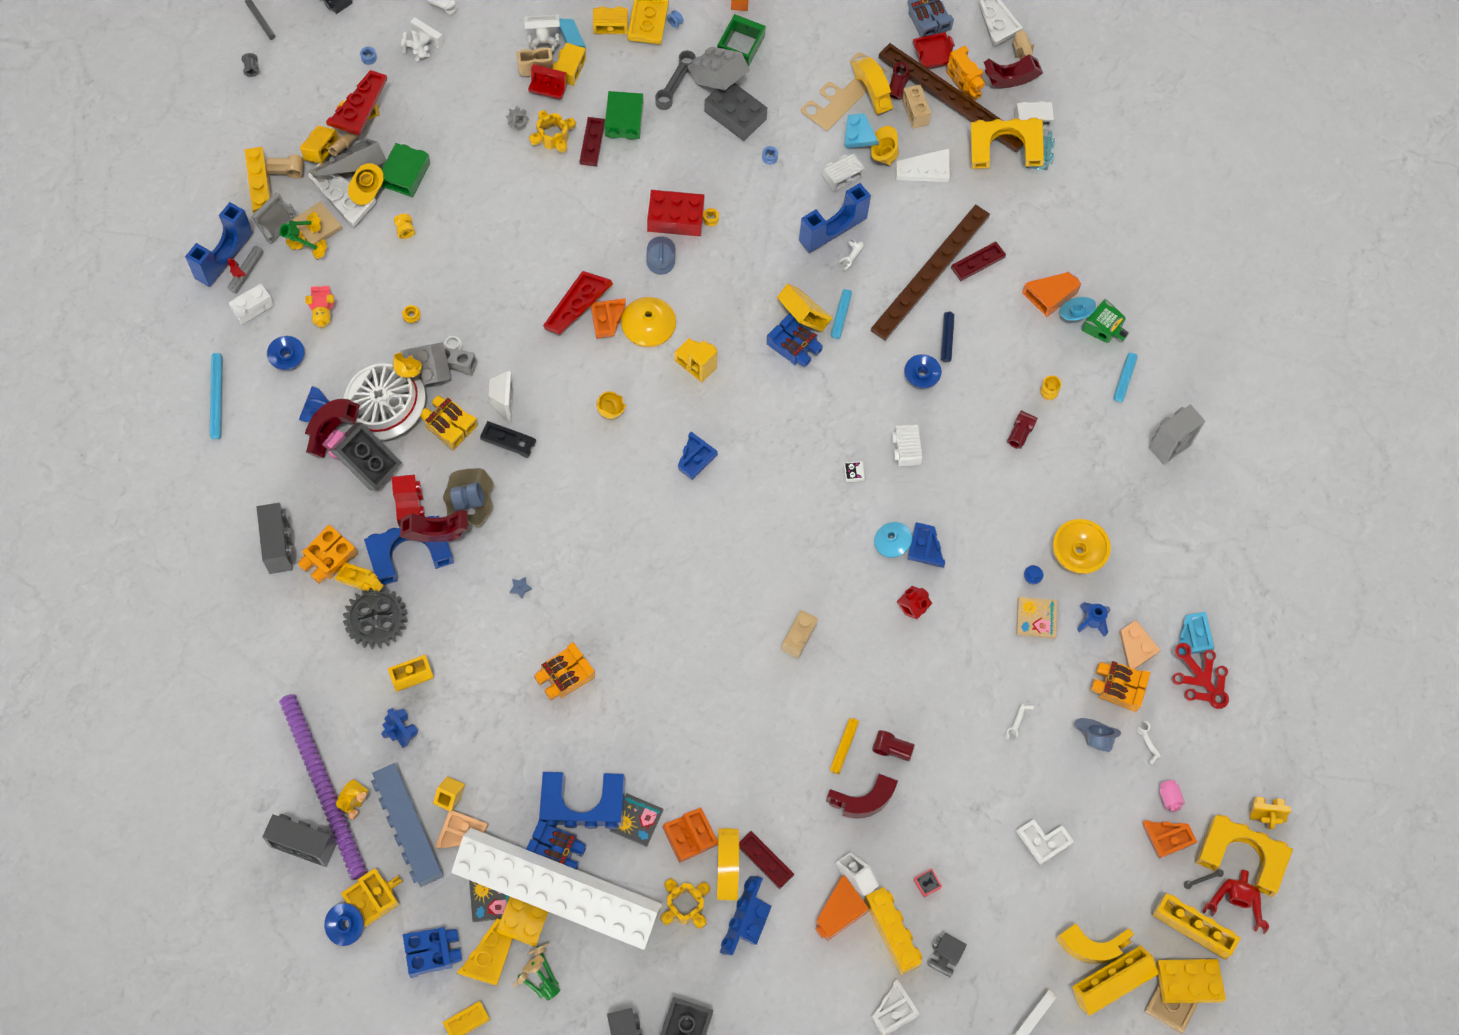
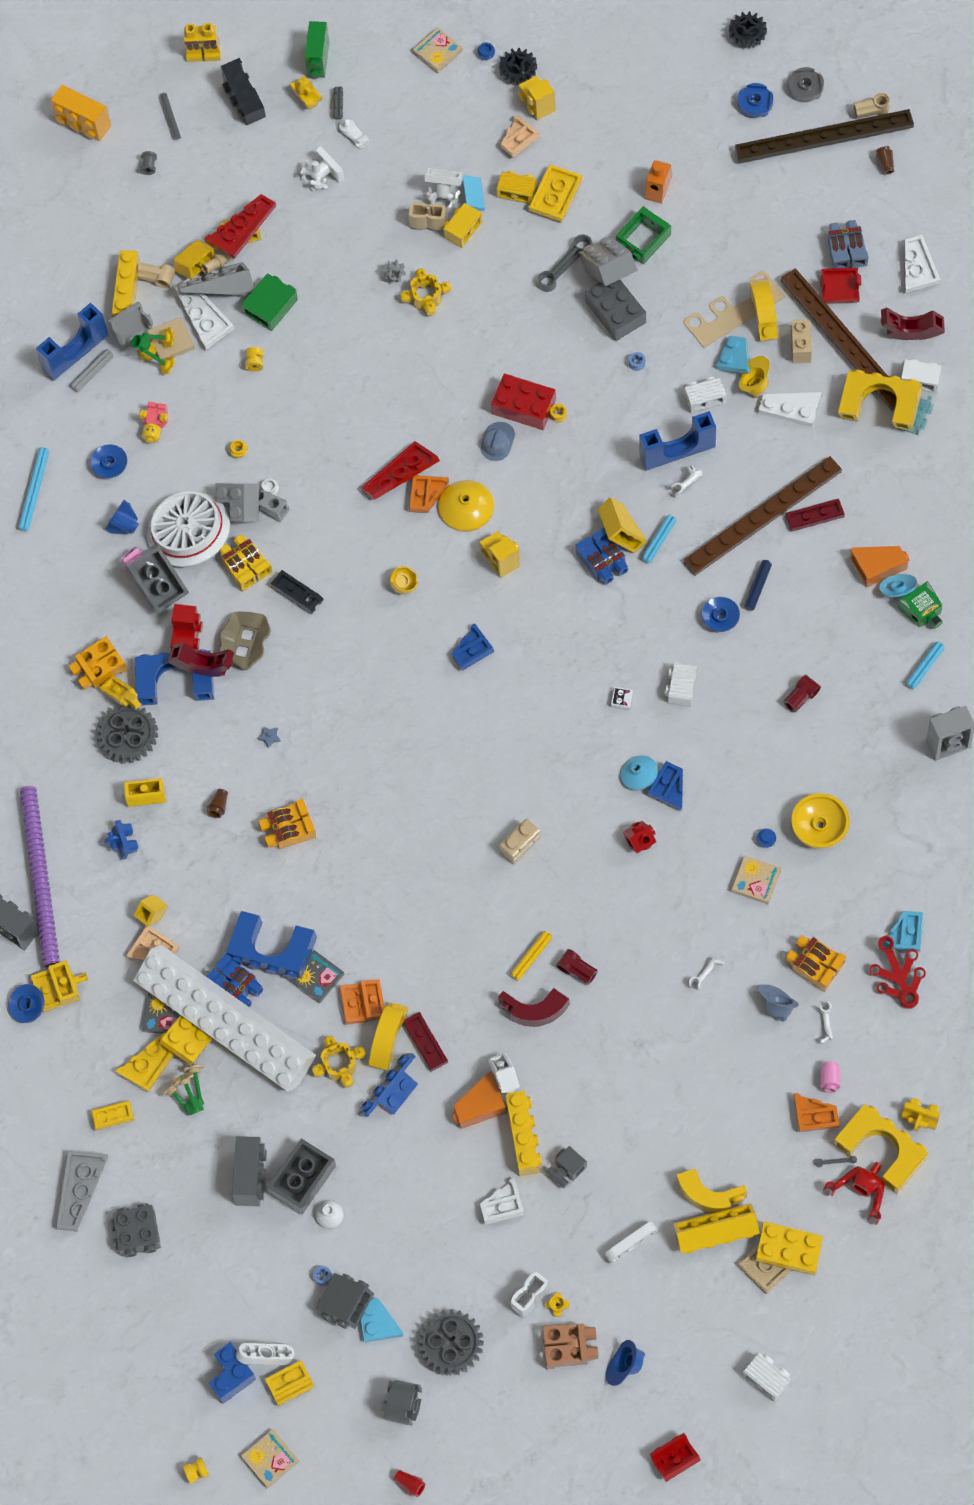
camera: 25 degrees right, 0 degrees up
(171, 30) = (80, 113): none -> light orange brick
(235, 270) = (82, 369): red piece -> none
(251, 303) = (88, 406): white brick -> none
(275, 538) = (53, 637): dark grey brick -> none
(326, 420) = (127, 537): dark red arch -> none
(351, 796) = (61, 892): yellow piece -> none
(365, 183) = (226, 309): yellow piece -> none
(368, 60) = (266, 181): medium blue bush -> none
(406, 367) = (216, 500): yellow hair -> none
(407, 825) = (106, 930): sand blue brick -> none
(429, 951) = (97, 1046): blue hips -> none
(466, 497) = (241, 638): sand blue wheel -> none
(487, 667) = (217, 805): none -> reddish brown cone
(502, 394) = (302, 547): white slope -> none
(548, 81) = (435, 240): red bracket -> none
(592, 141) = (463, 310): dark red tile -> none
(624, 115) = (501, 289): green brick -> none
(675, 18) = (583, 198): medium blue bush -> none
(898, 81) = (790, 311): dark red piece -> none
(927, 883) = (570, 1099): tile -> none
(965, 73) = (861, 317): light orange hips -> none
(1022, 44) = (934, 298): tan arm -> none
(1044, 846) = (691, 1093): white plate -> none
(1050, 383) = (844, 654): yellow wheel -> none
(1095, 617) = (812, 892): blue brick -> none
(1137, 645) = (846, 929): light nougat wing -> none
(1196, 926) = (810, 1200): yellow brick -> none

